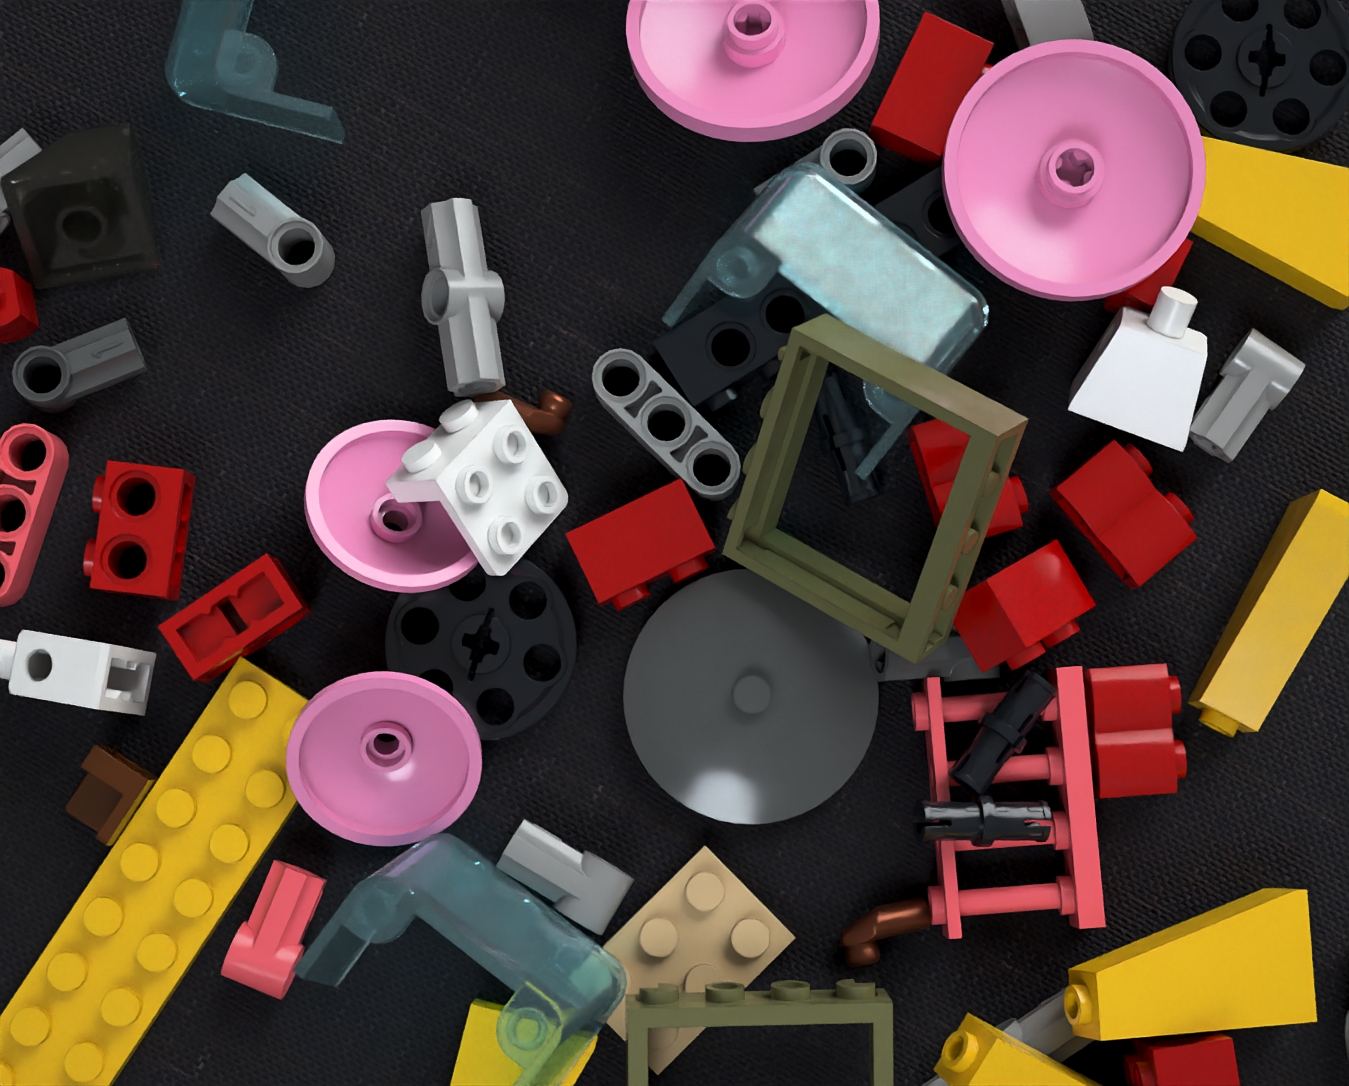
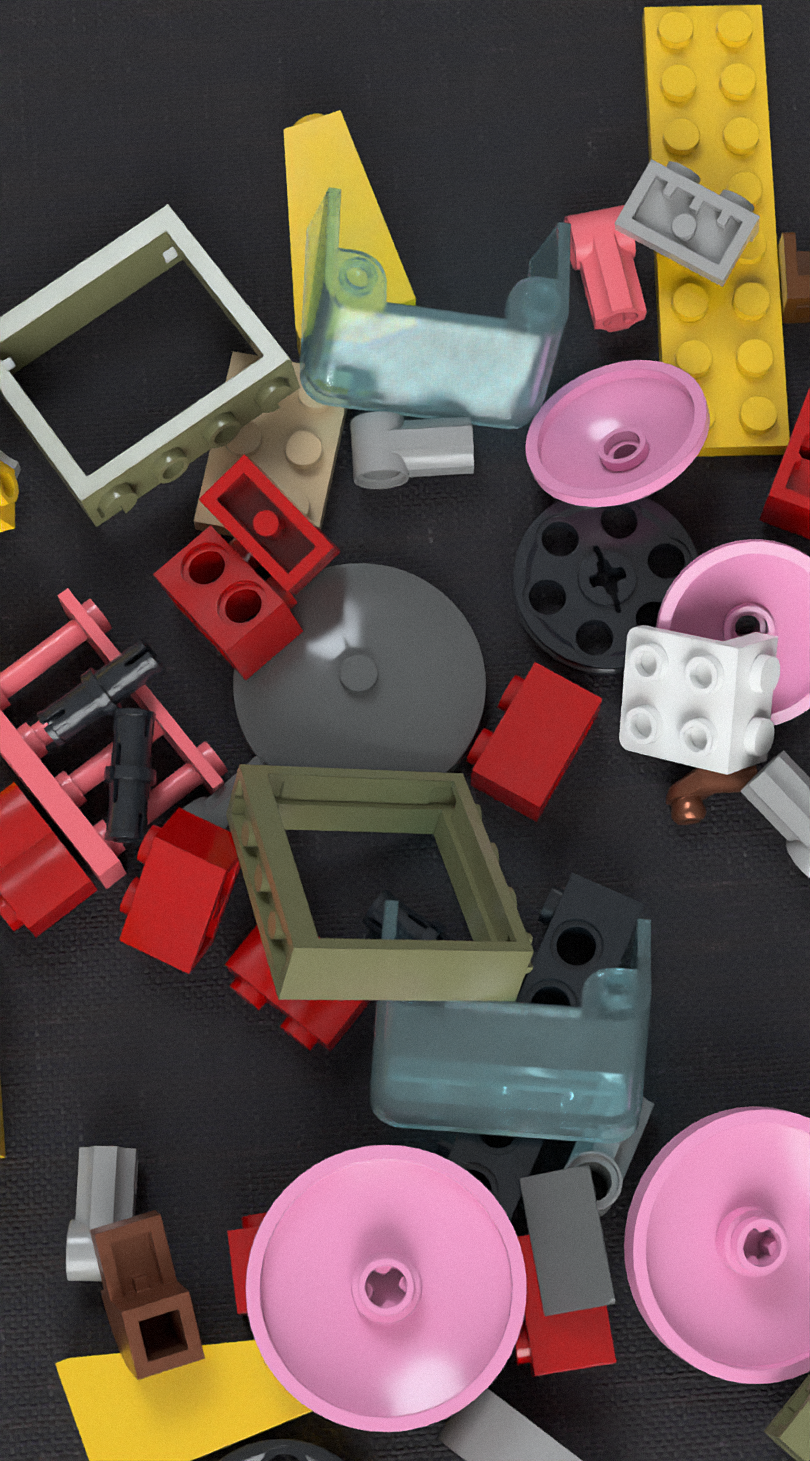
camera: 145 degrees right, 10 degrees down
(184, 907) = (688, 221): none -> light grey bracket
(657, 395) = (614, 840): light grey beam -> none
(743, 870) = (269, 525): none -> red brick
(828, 833) = (225, 604): none -> red brick
(882, 923) = (130, 577): copper arm -> none
(903, 119) = (567, 1240): none -> dark grey slope
(1124, 513) = (145, 1040): red brick -> none
(1145, 371) = (205, 1167): white torso -> none
(1261, 293) = (142, 1297): none -> copper brick

